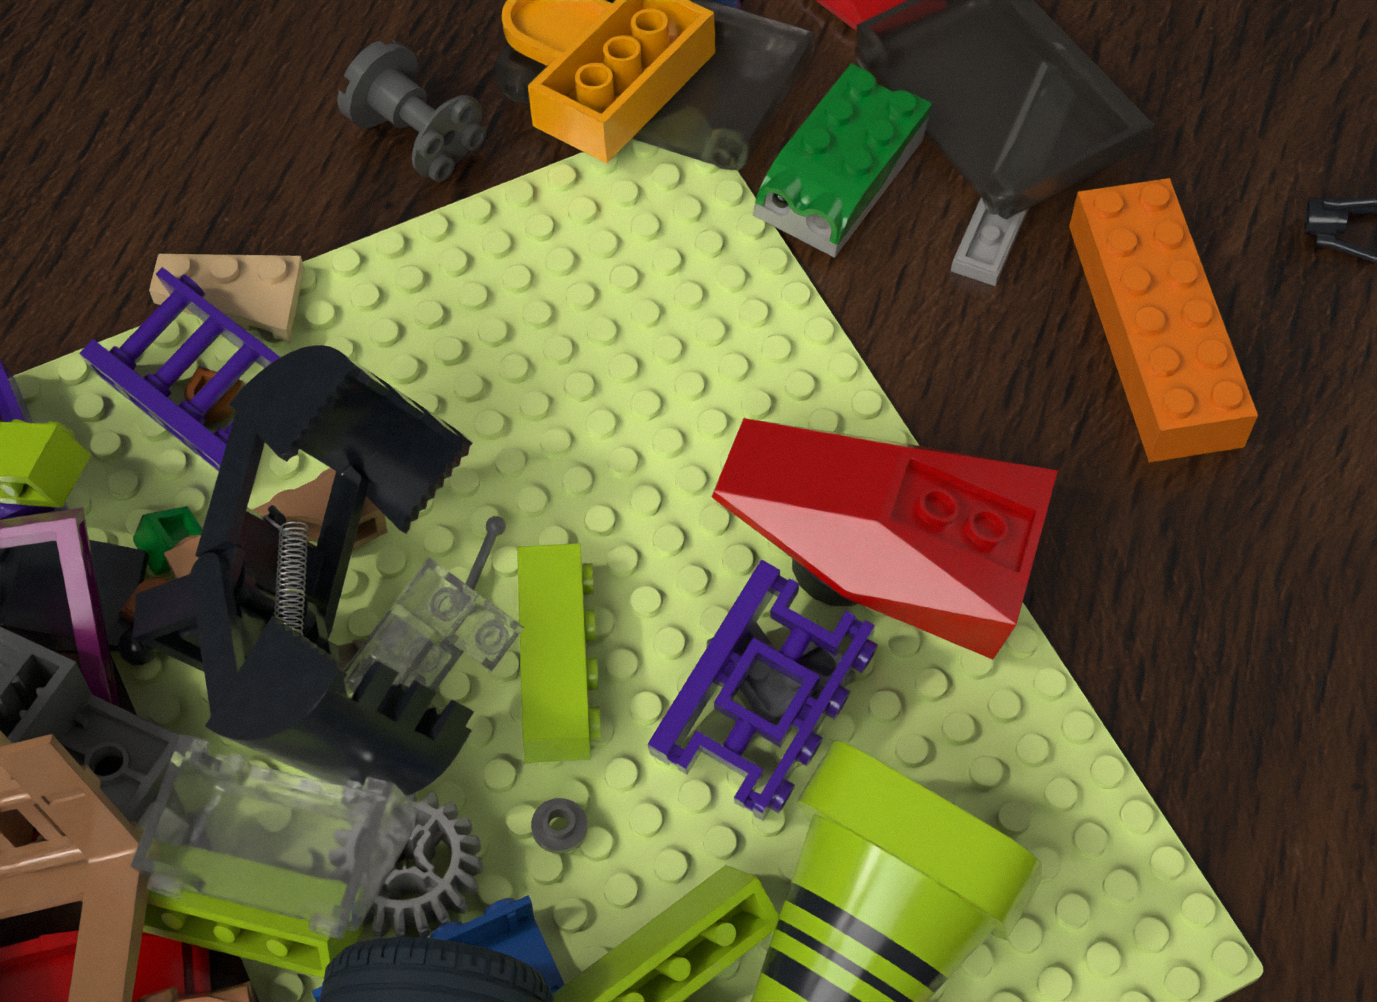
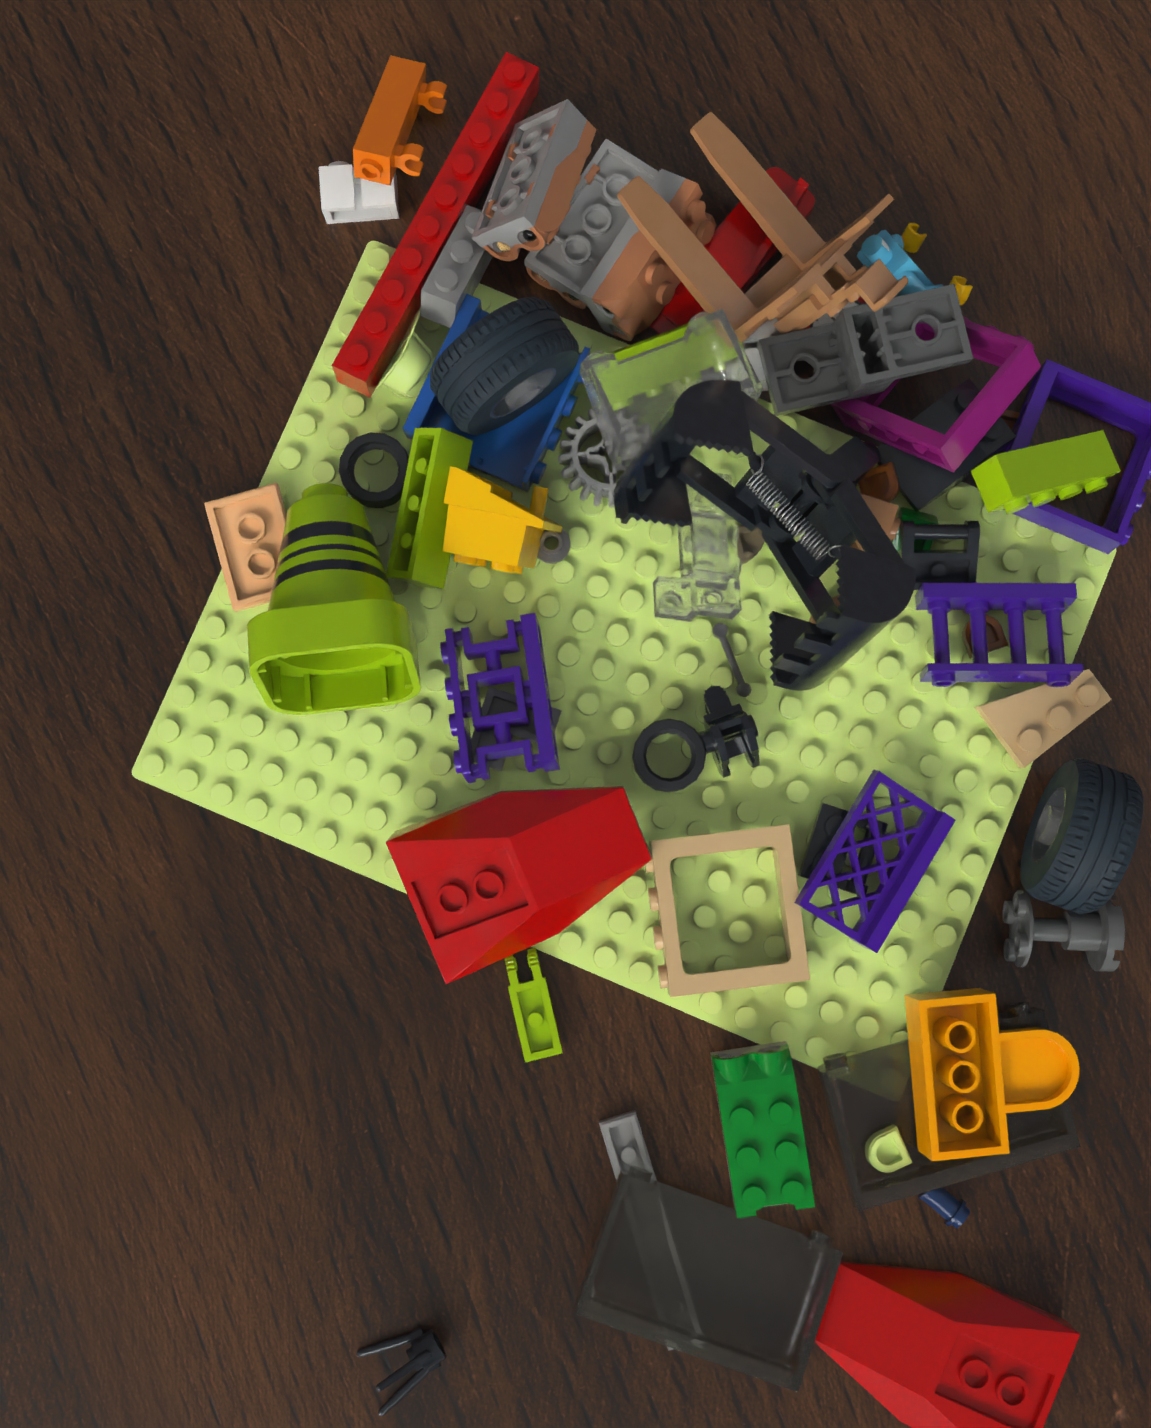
camera: 140 degrees right, 25 degrees up
(178, 473) = (941, 565): none -> black plate
(316, 147) = (1082, 836): none -> black wheel
(521, 251) = (903, 872): none -> dark purple fence
(549, 331) = (825, 827): none -> black plate
(553, 486) = (728, 731): none -> black hinge
(553, 653) = (639, 635): lime brick -> none
(604, 866) = (491, 525): none -> yellow piece
(635, 484) = (684, 731): none -> black tyre
(669, 409) = (666, 935): none -> tan piece
(742, 70) = (887, 1150): none -> yellowish green tile
(984, 404) = (533, 1010): none -> lime hinge
(1161, 321) = (475, 1172): orange brick -> none

